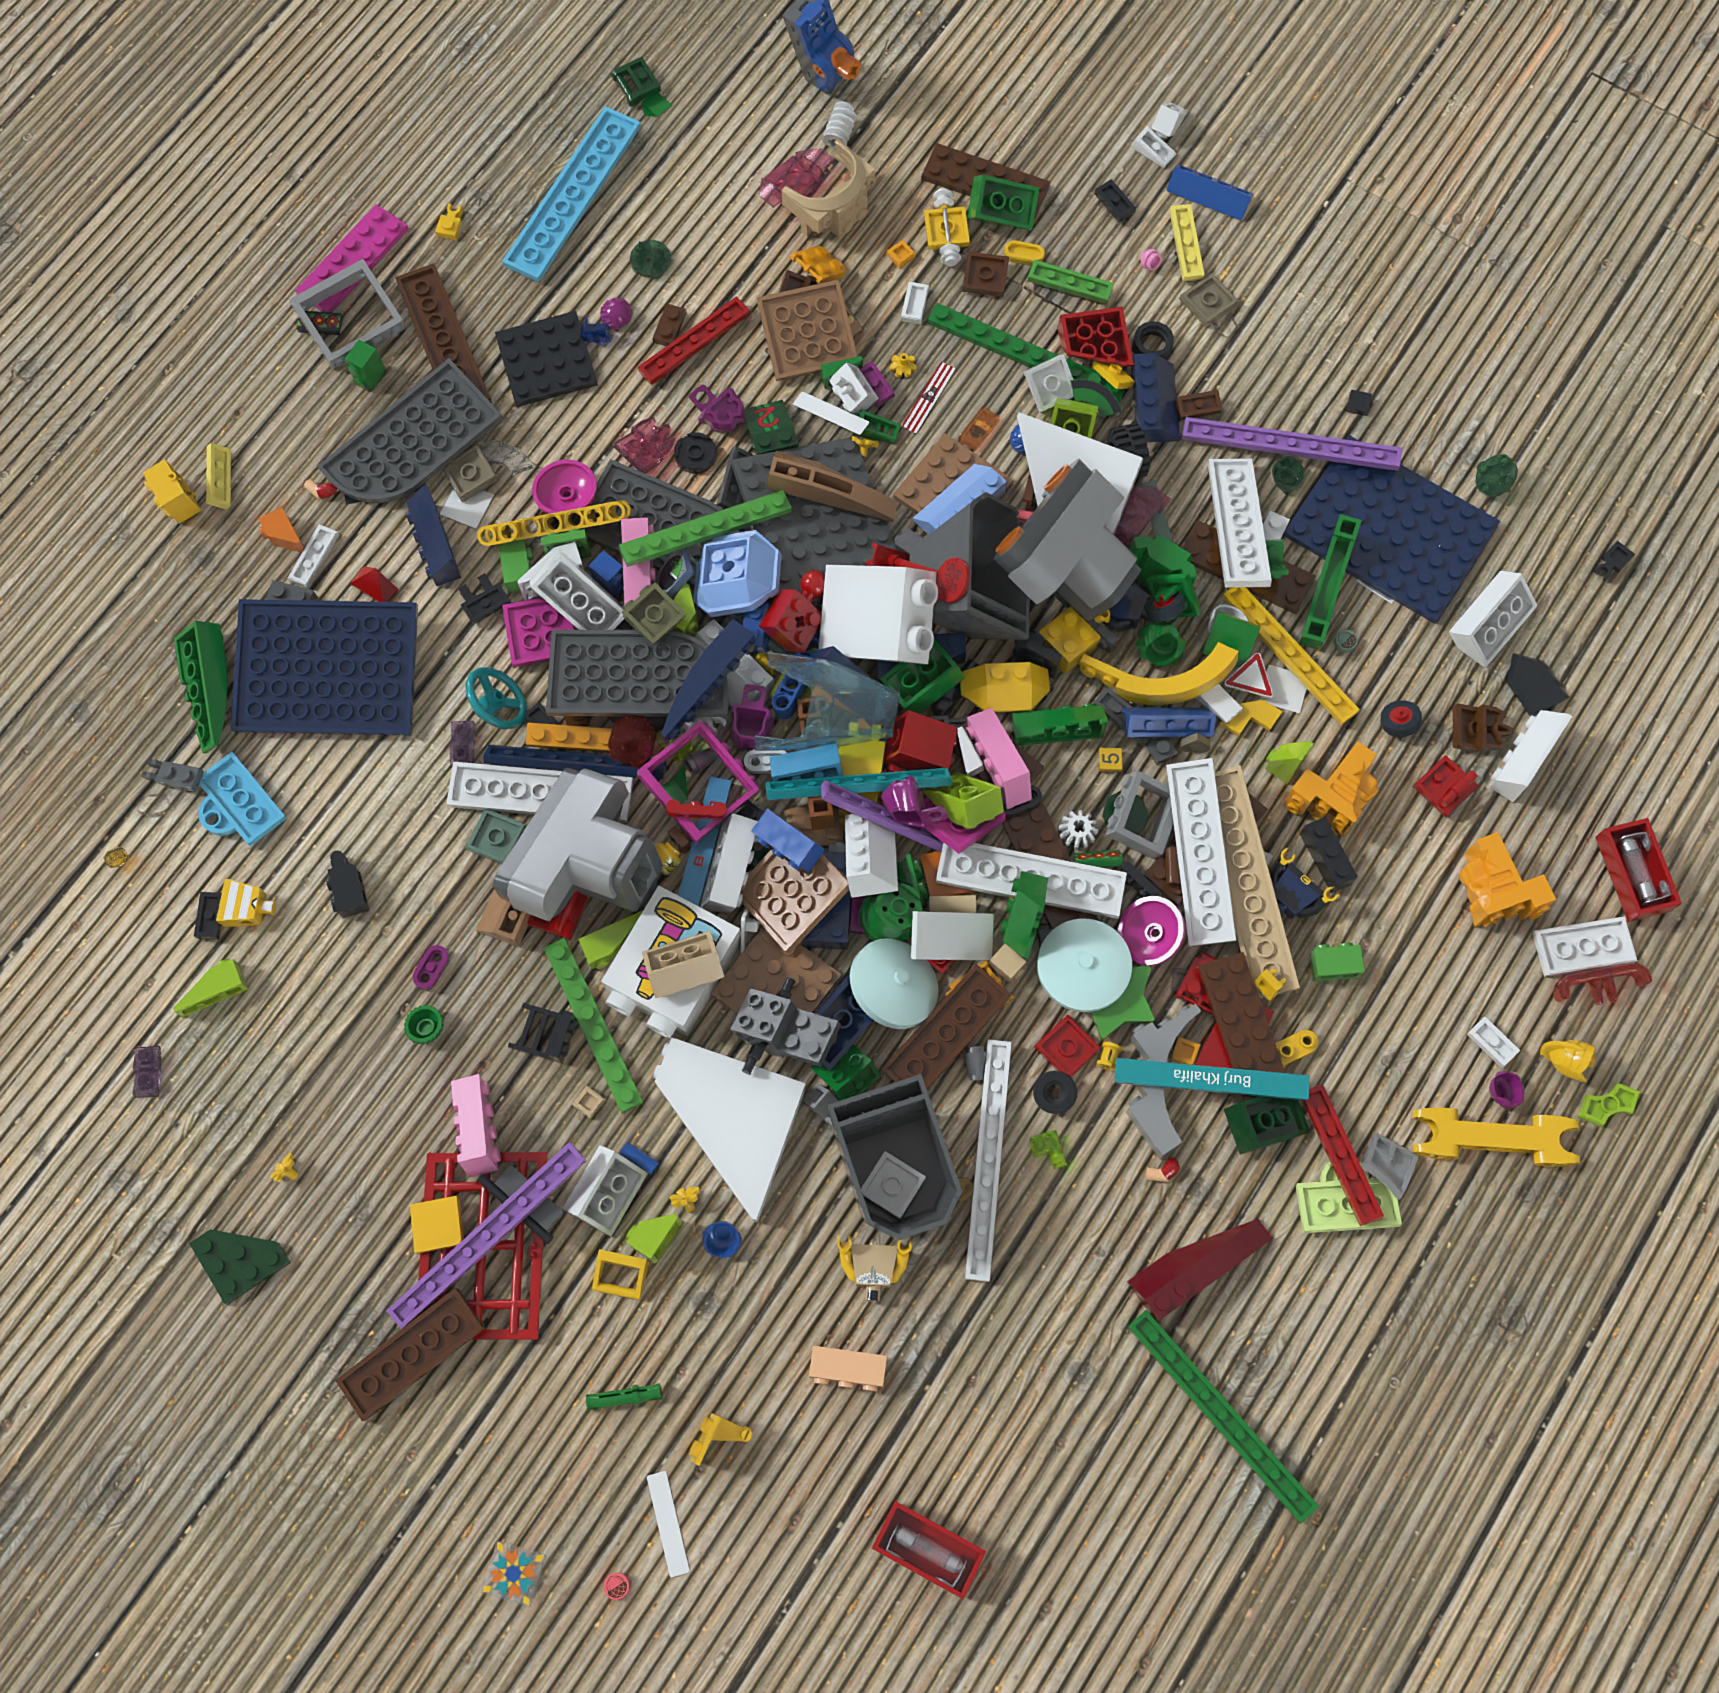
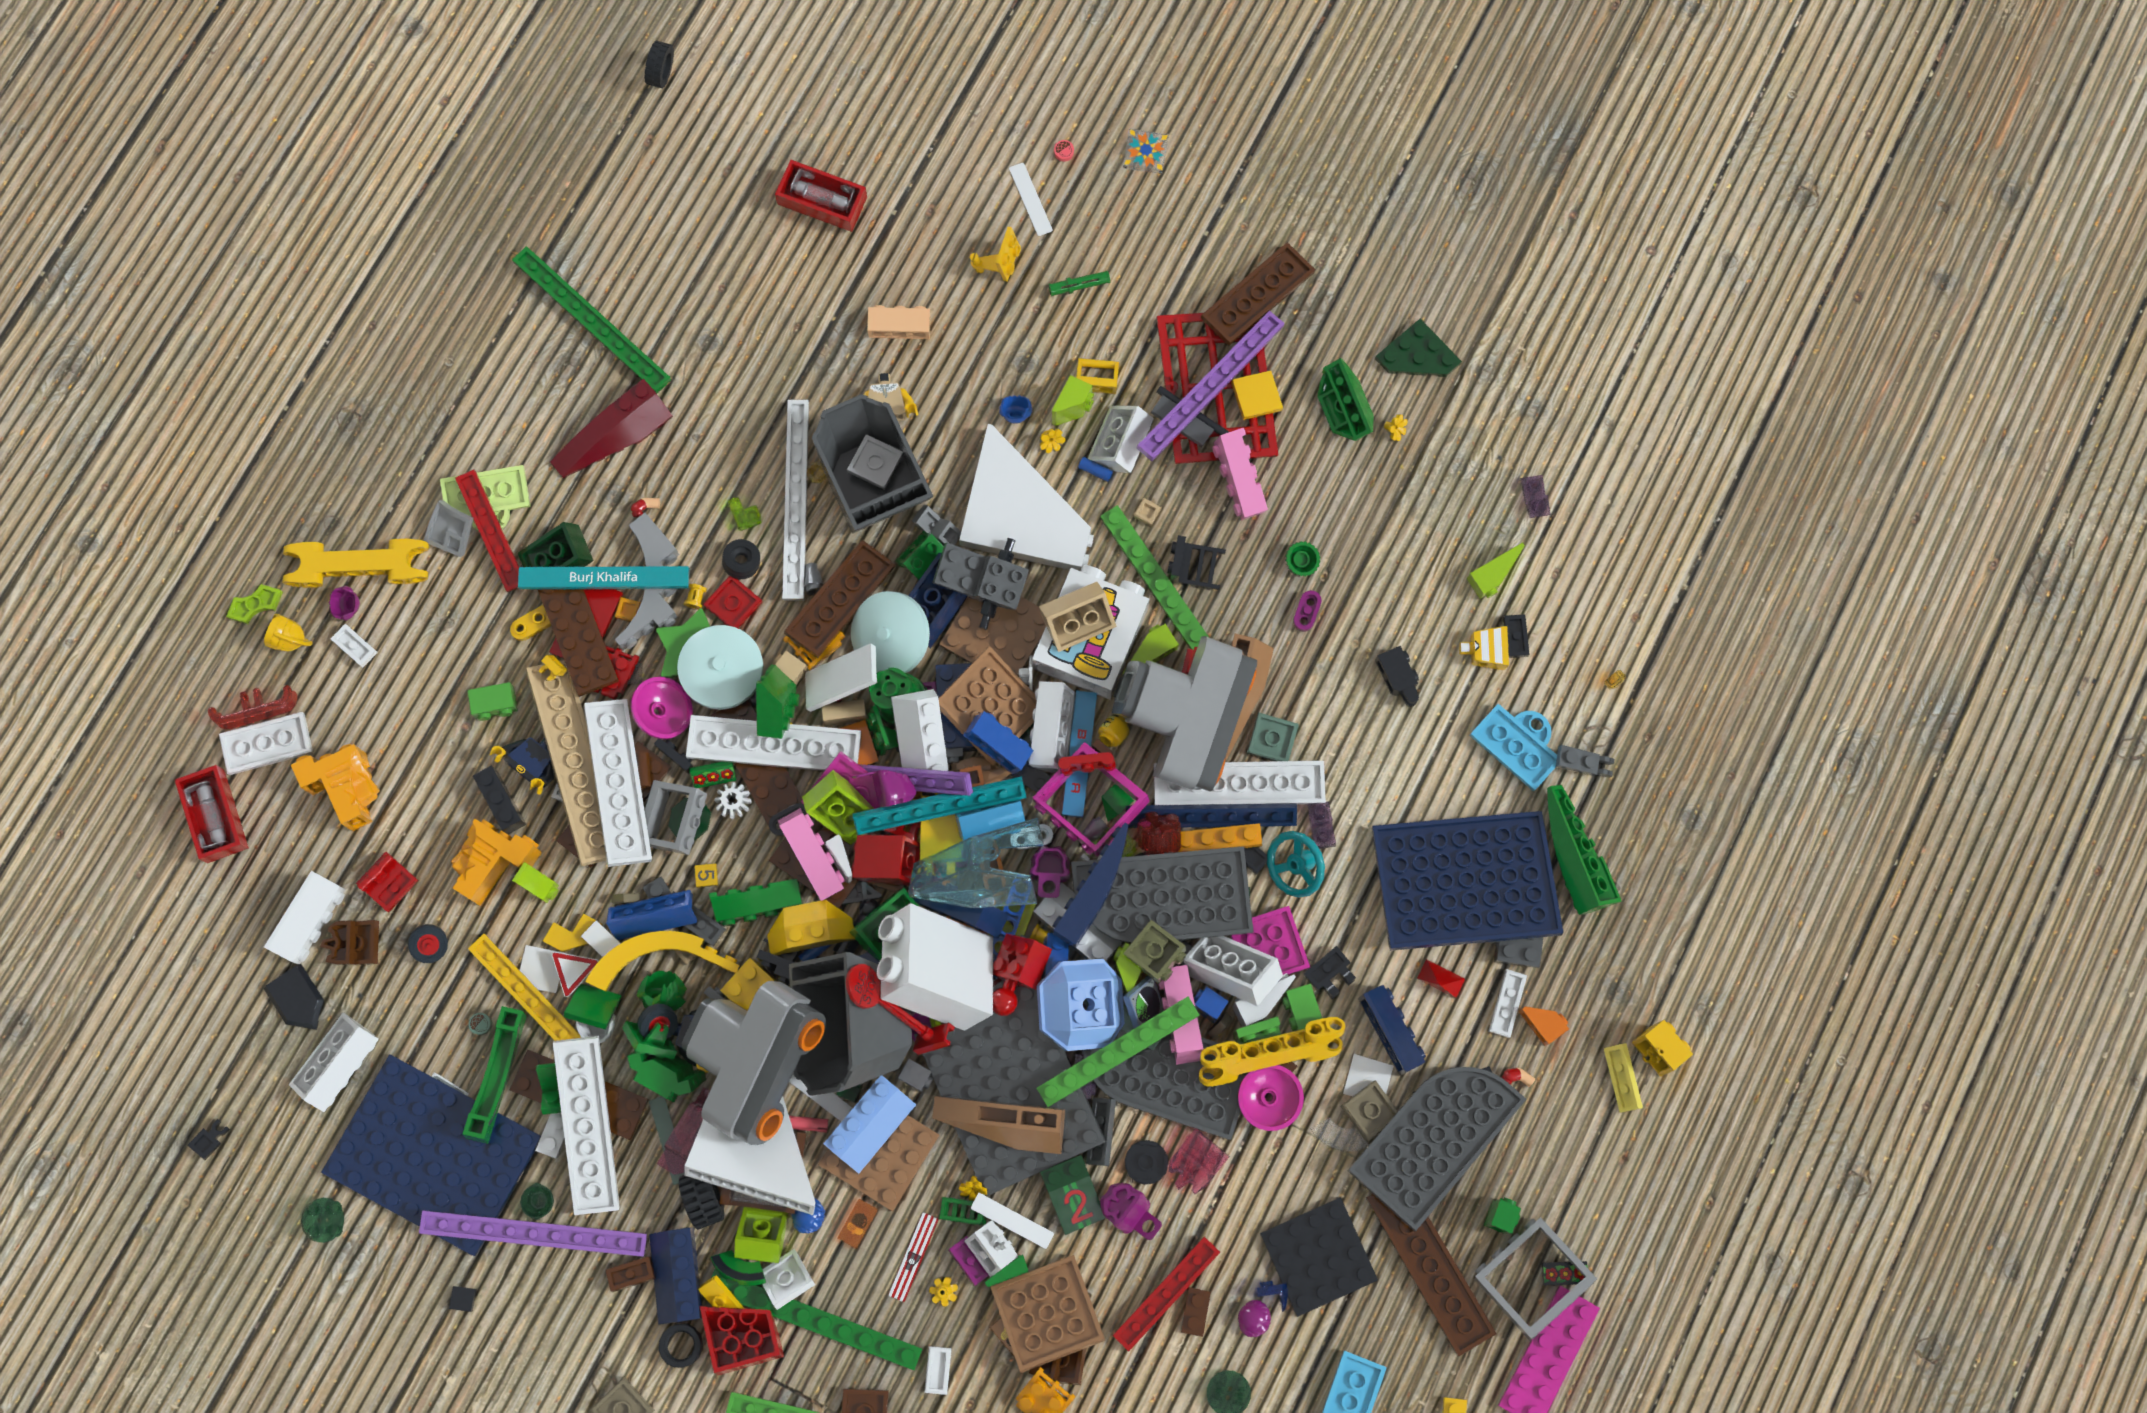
camera: 170 degrees right, 5 degrees up
(335, 1201) = (1344, 402): none -> green wedge

